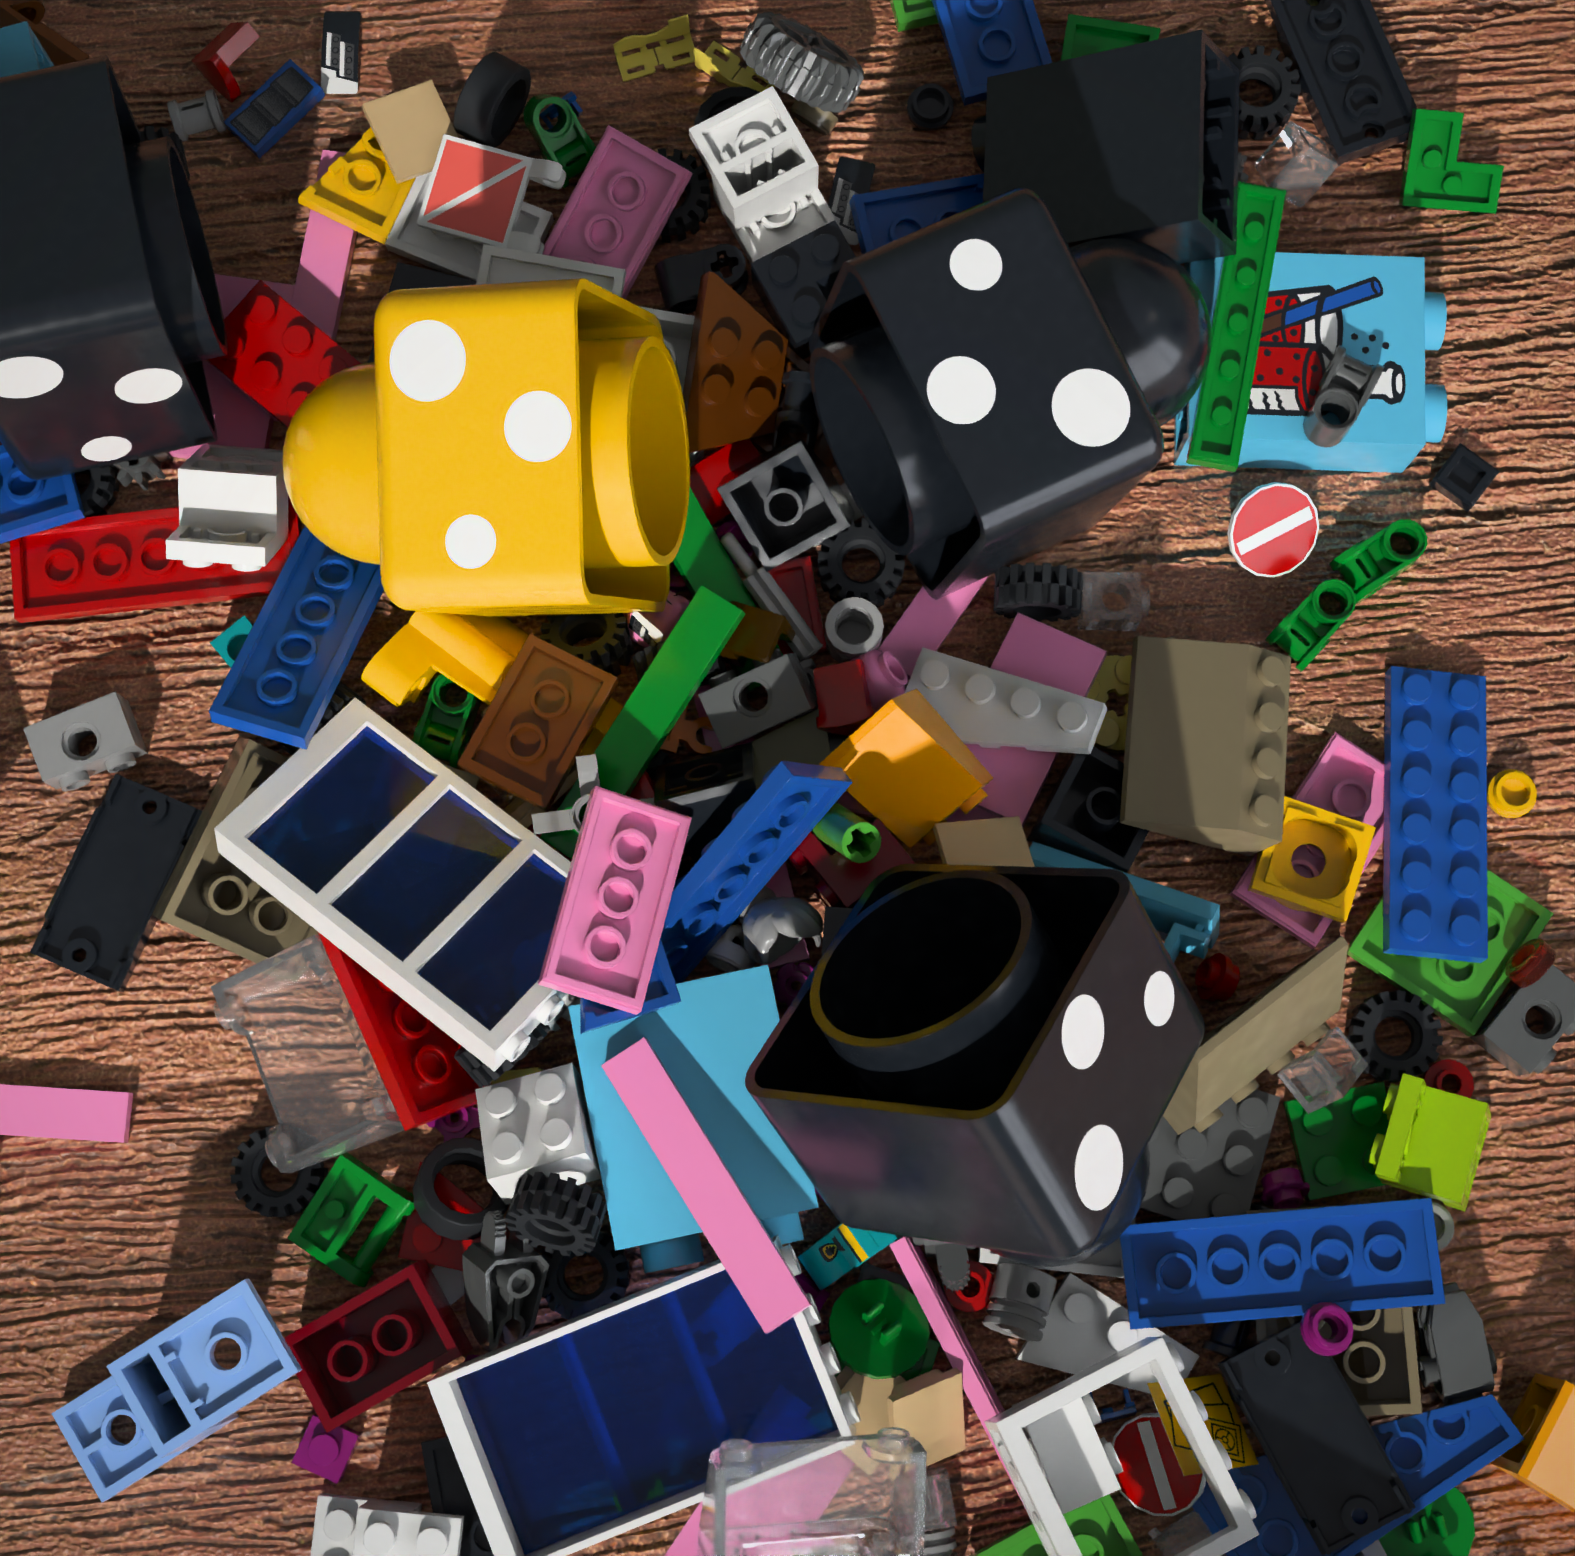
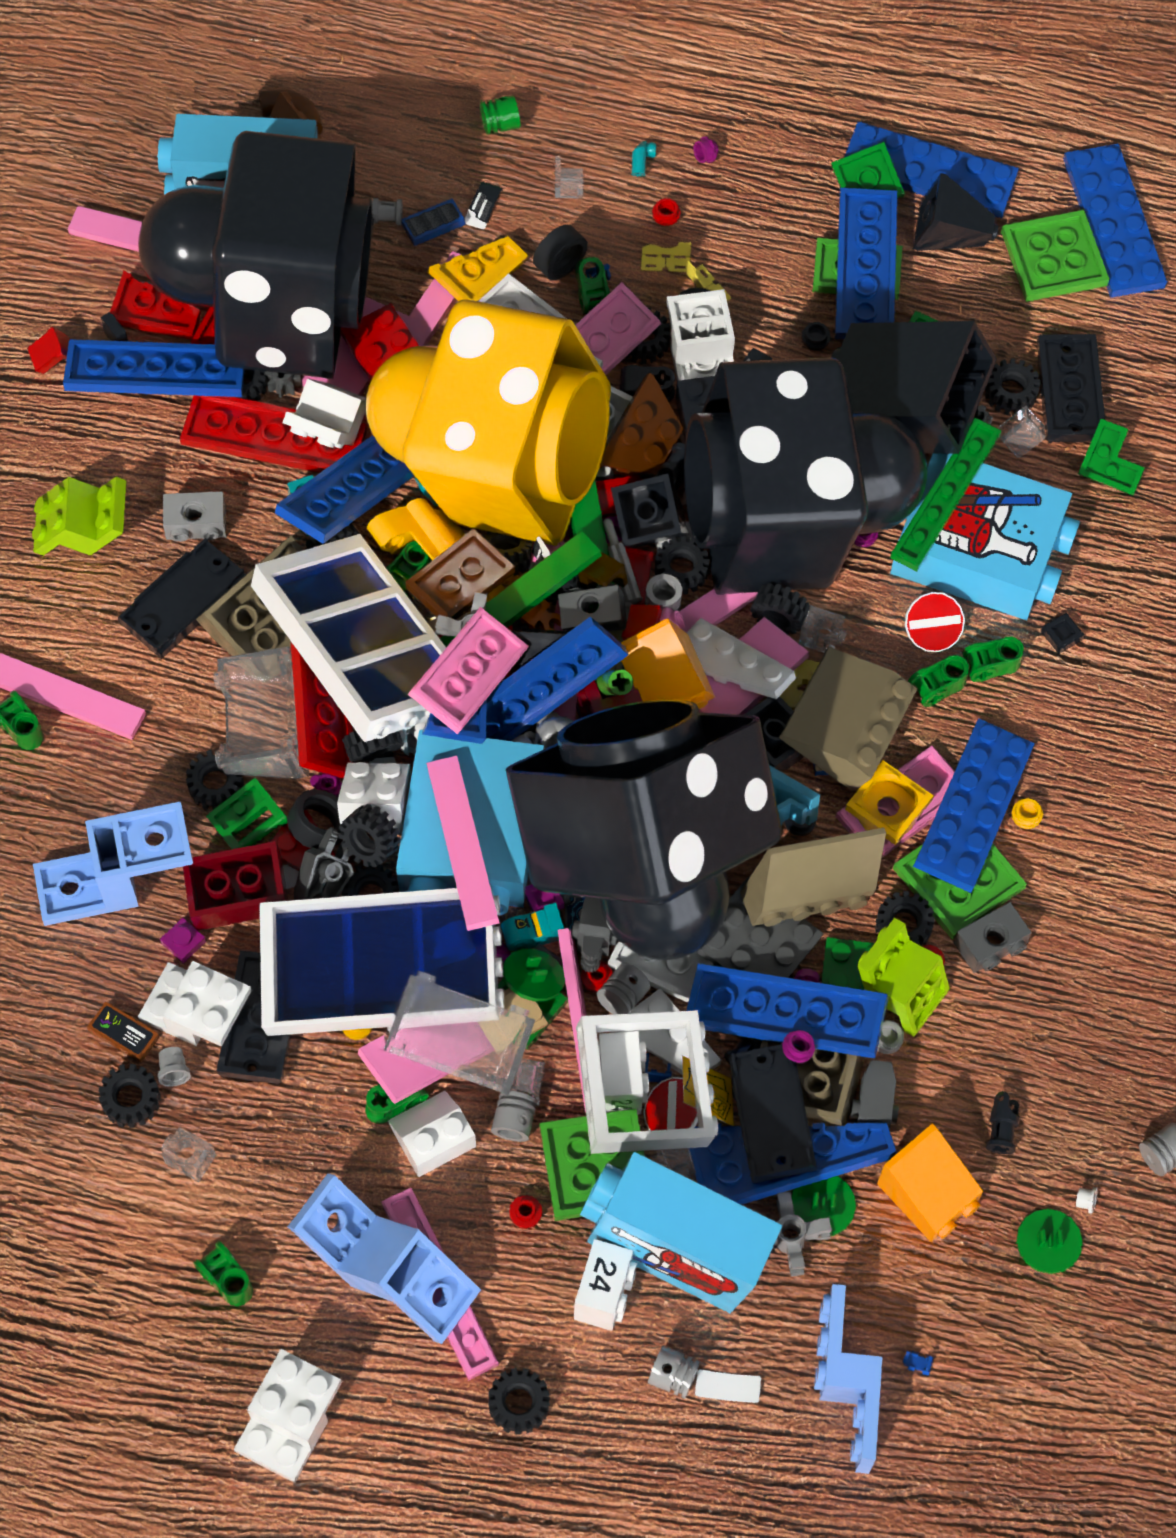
camera: 15 degrees right, 15 degrees down
(221, 53) = (408, 186): red tile -> none
(409, 129) = (509, 254): tan piece -> none
(480, 192) = (538, 292): coral flag -> none
(801, 62) = (747, 285): dark grey gear -> none
(814, 117) = (745, 319): dark tan tile -> none
(931, 1412) = (548, 1033): tan piece -> none
(1324, 1072) = (853, 920): clear panel -> none
(1342, 391) = (996, 545): dark grey piece -> none
(1530, 962) = (999, 899): clear red tile -> none

